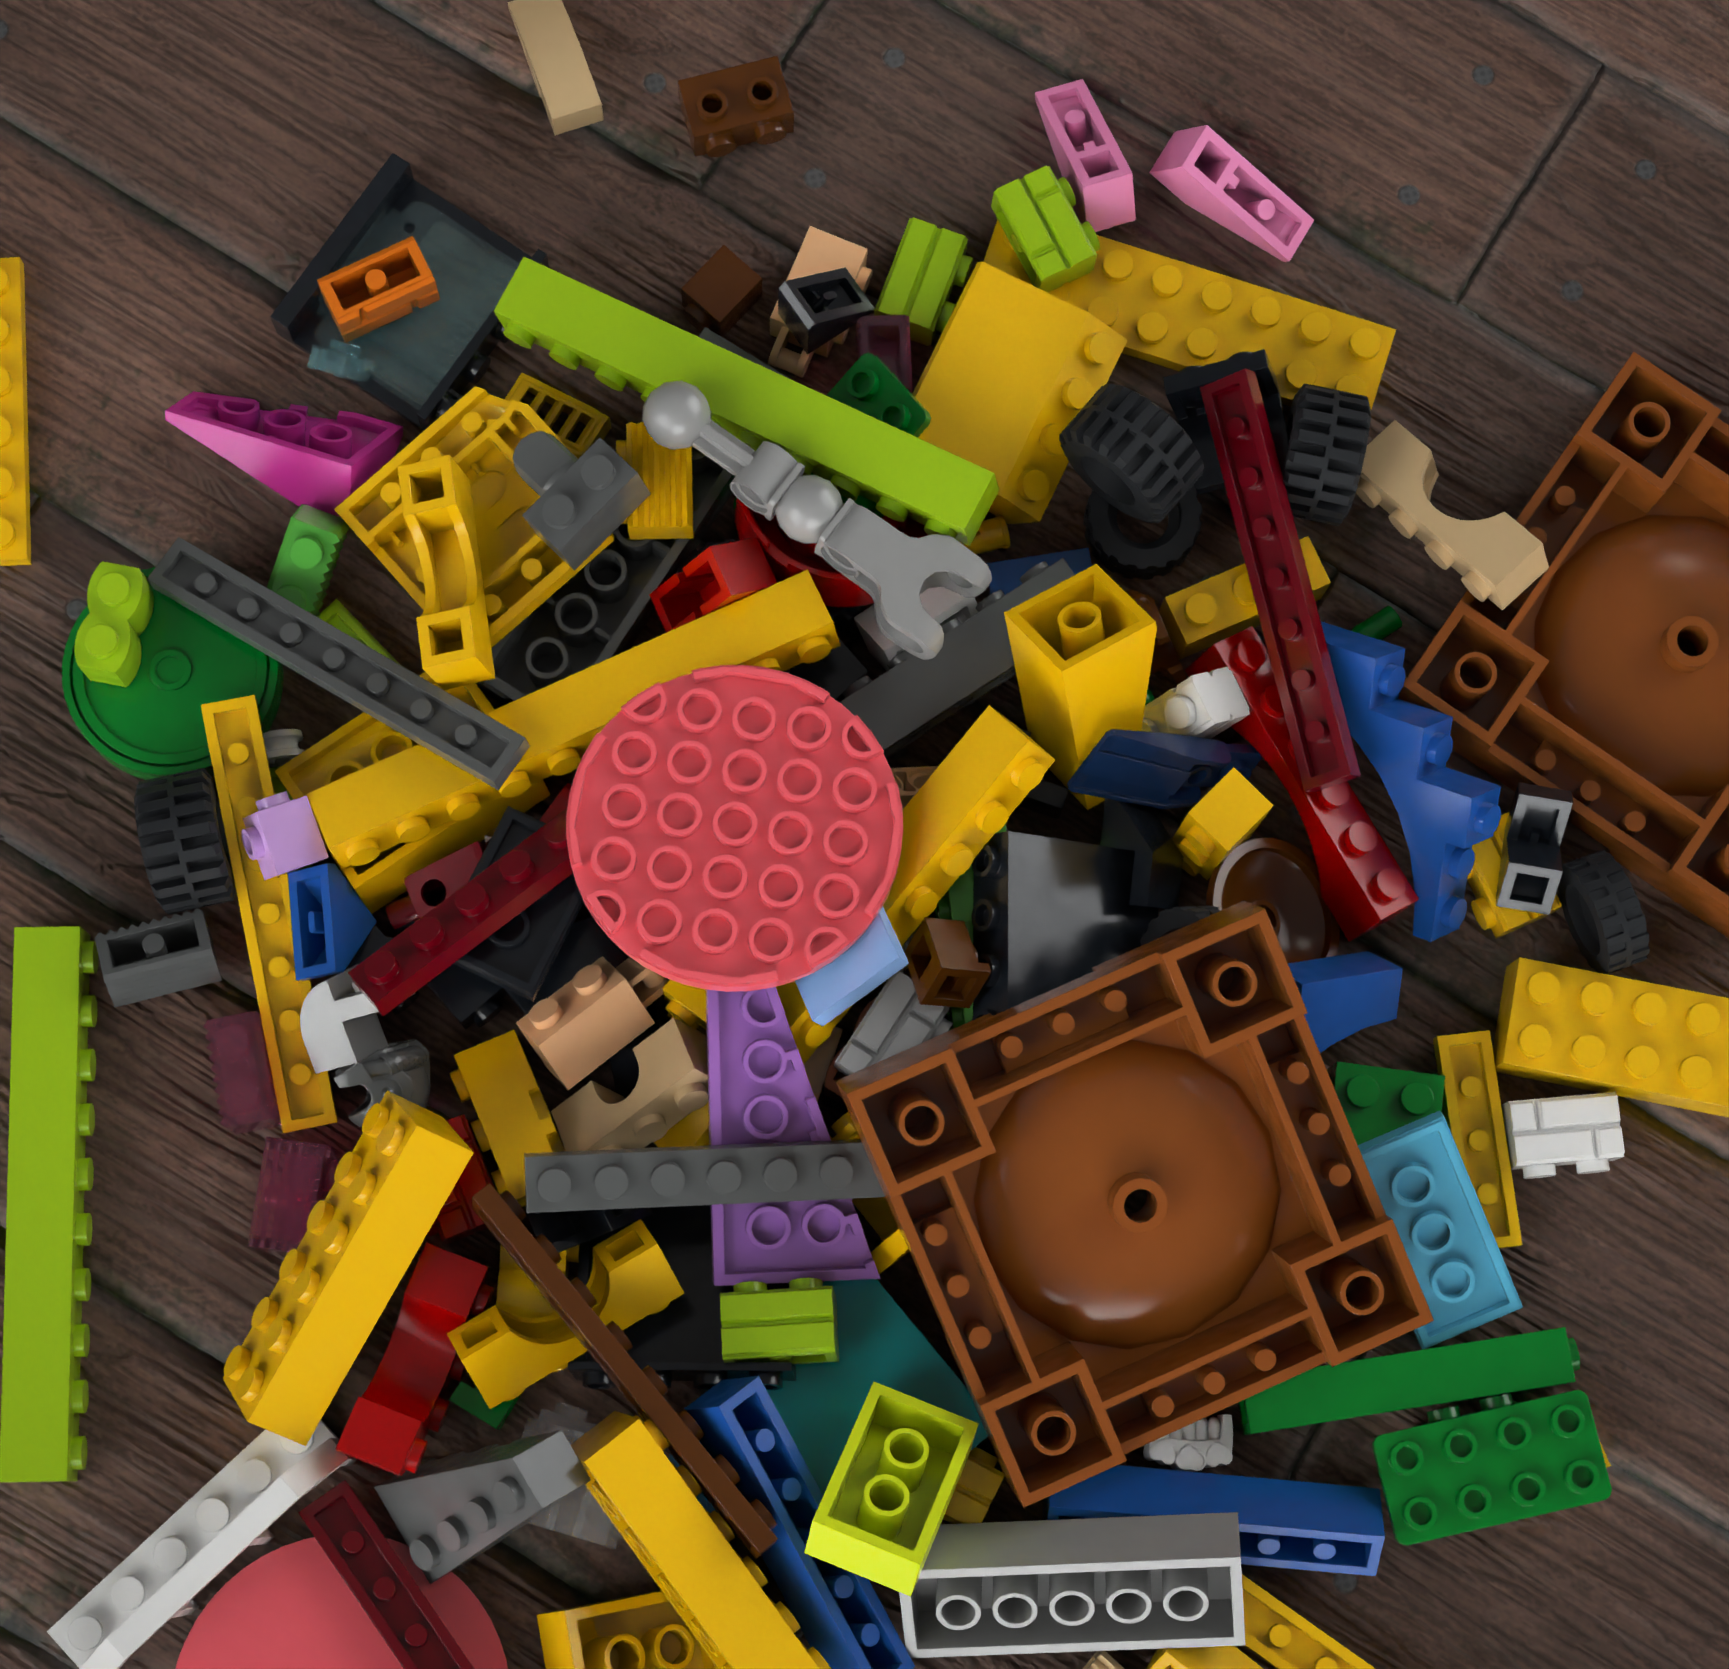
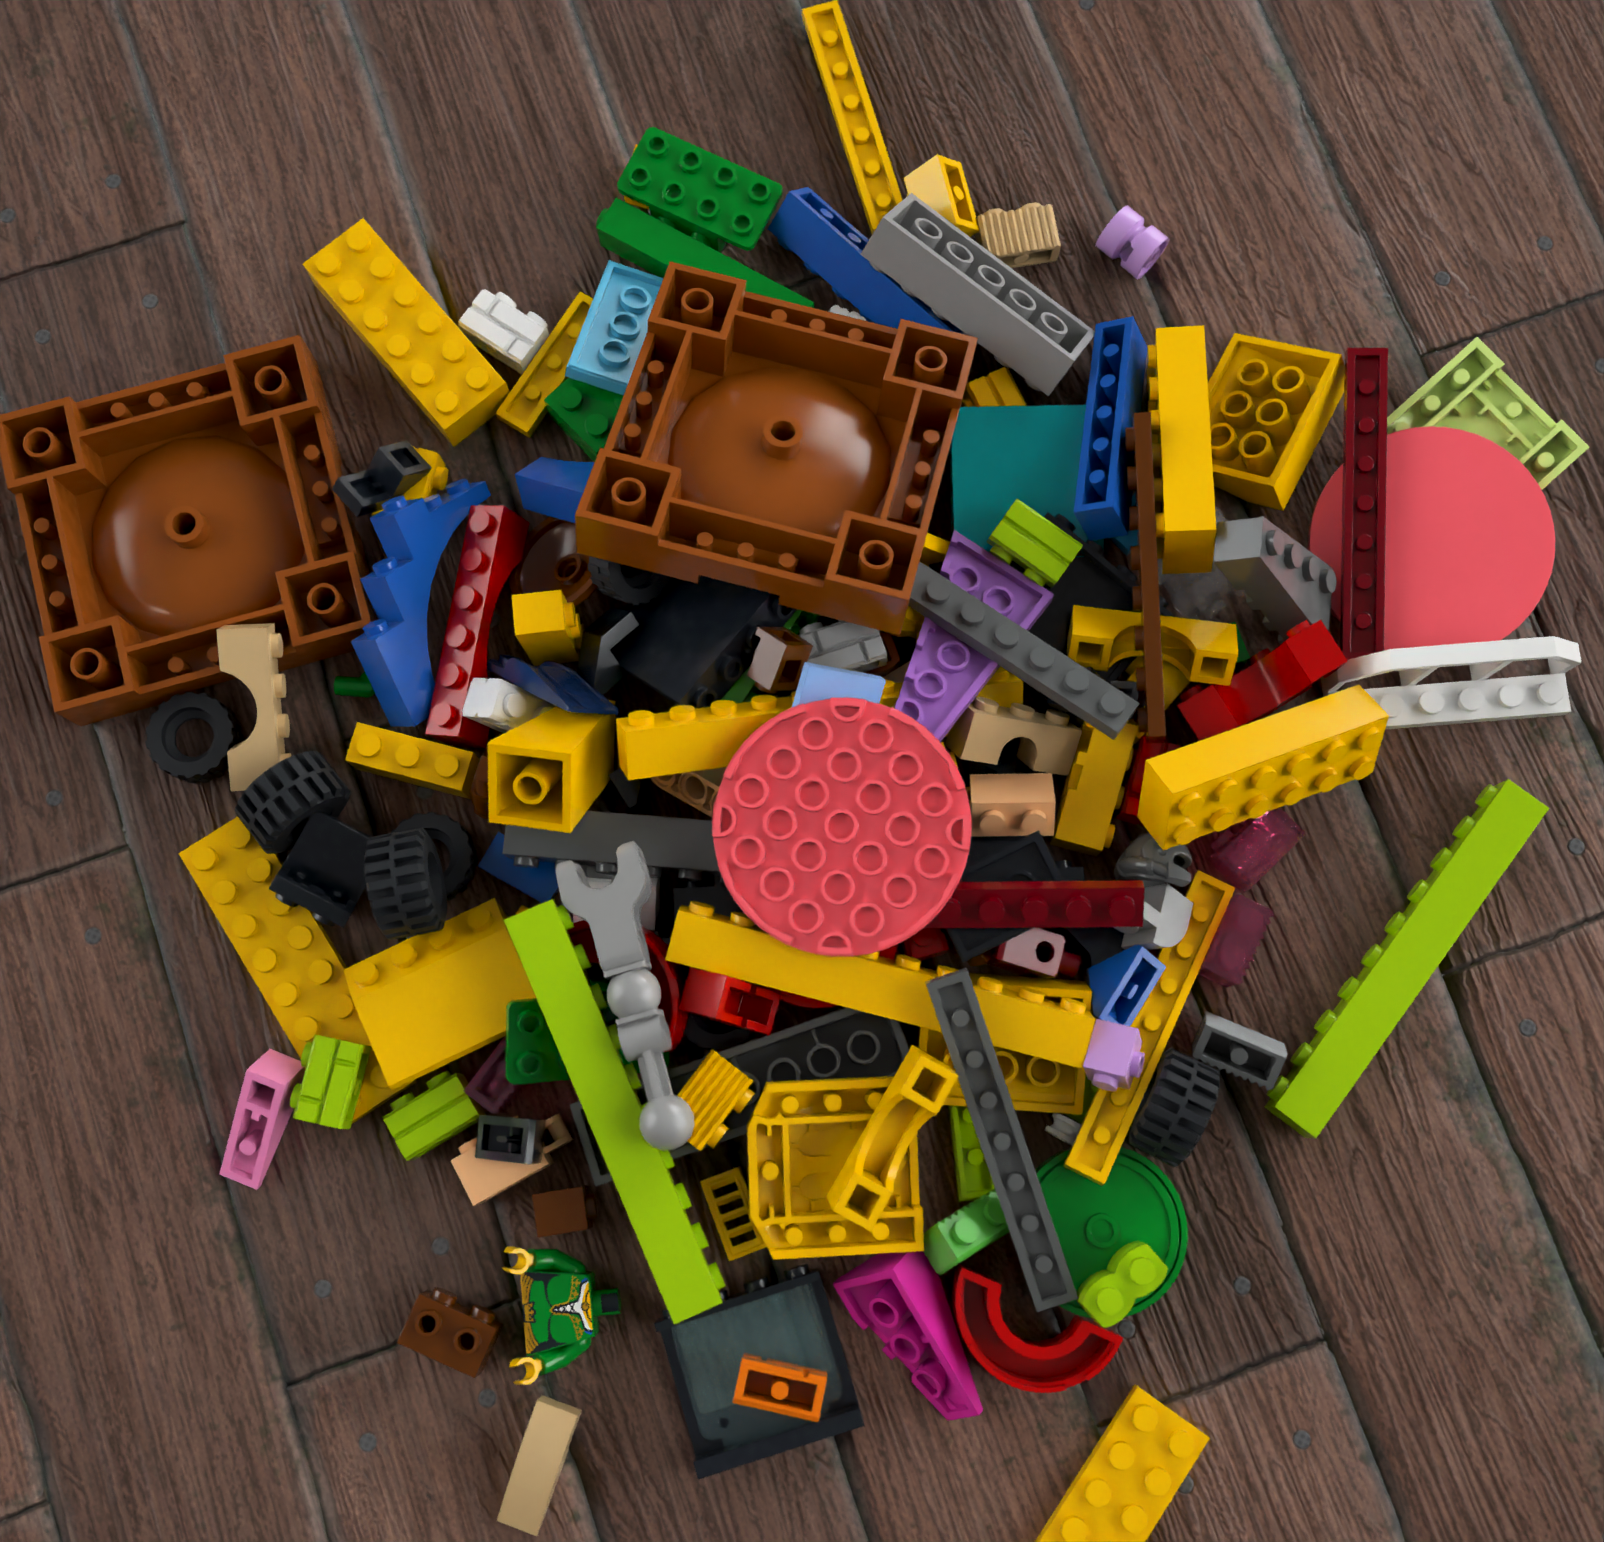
camera: 130 degrees left, 0 degrees up
(170, 488) = (1024, 1363): none -> red brick
(341, 360) = (842, 1357): clear light blue plate -> none
(579, 497) = (770, 1118): dark grey brick -> none
(651, 202) = (557, 1309): none -> torso
(891, 1488) = (1043, 401): neon yellow brick -> none
(1231, 191) = (196, 1021): bright pink slope -> none
(1280, 581) = (385, 740): dark red plate -> none
(1520, 429) = (167, 721): none -> black tyre
(1603, 913) = (374, 416): black tyre -> none

